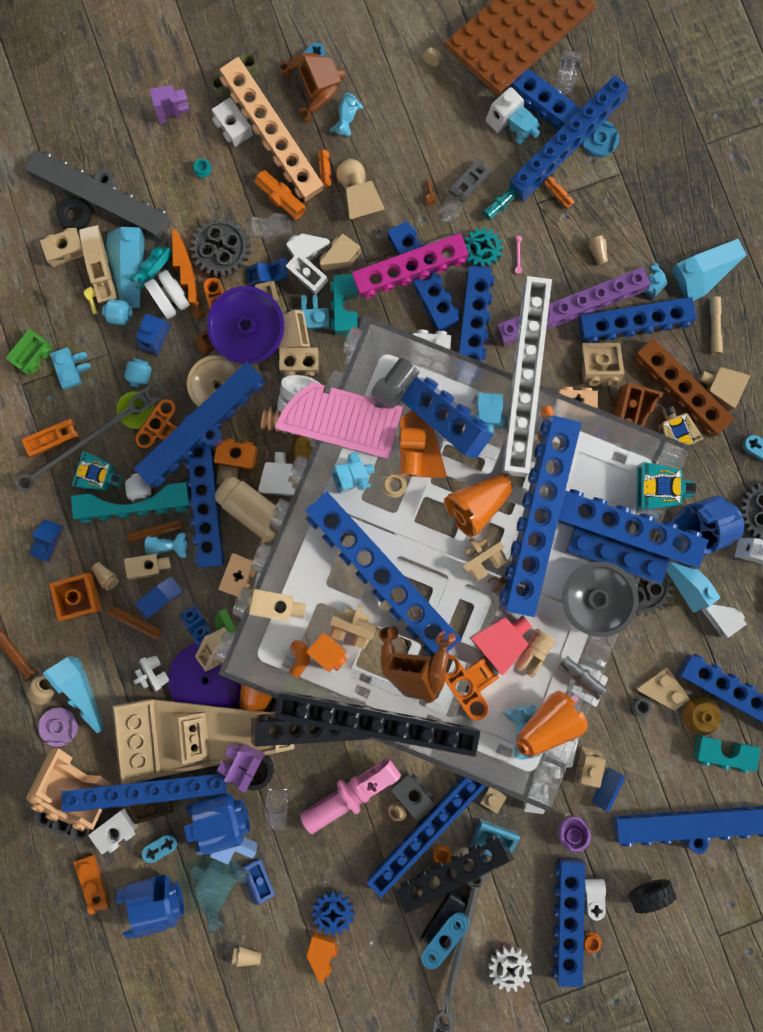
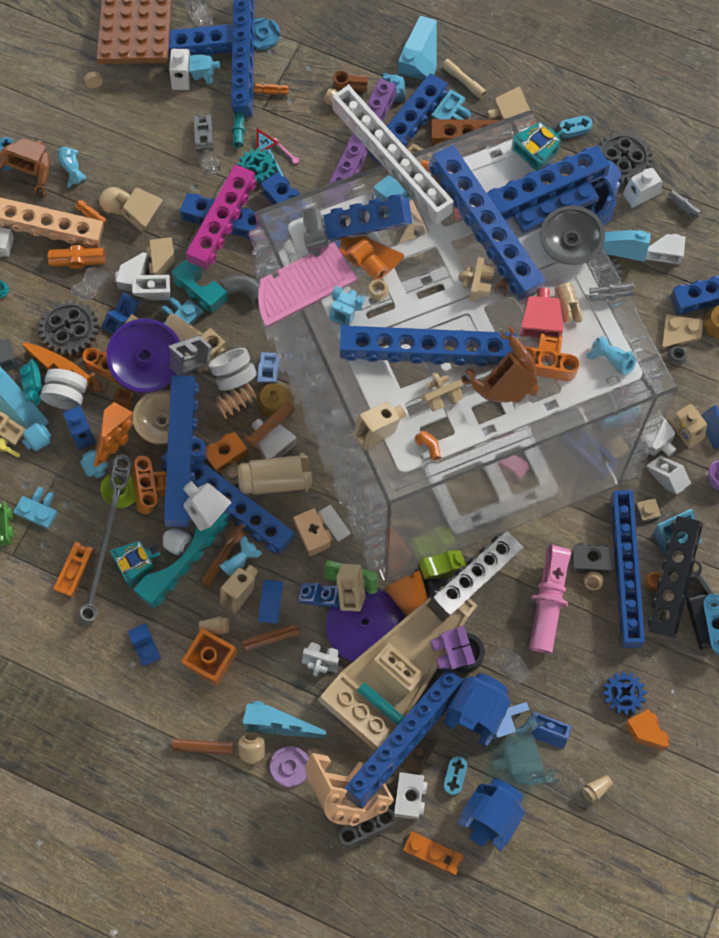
camera: 45 degrees left, 15 degrees down
(157, 751) = (380, 703): none -> teal axle
(167, 362) = (112, 432): none -> orange slope
(172, 485) = (204, 504): none -> white torso
(180, 524) = (234, 534): none -> dark orange plate
(273, 467) = (270, 424): none -> dark orange pin
(274, 357) = (189, 355): none -> flat silver window
(328, 652) = (444, 416): orange brick -> none
(377, 723) = (518, 430): black brick -> none
(430, 197) = (186, 166): dark orange hand -> none
(478, 503) = (440, 252): orange cone -> none
(508, 233) = (266, 142): none -> piece
(551, 725) = (623, 325): orange cone -> none
(625, 247) = (356, 82): none -> dark orange piece
(677, 339) = (450, 106): none -> medium azure hinge

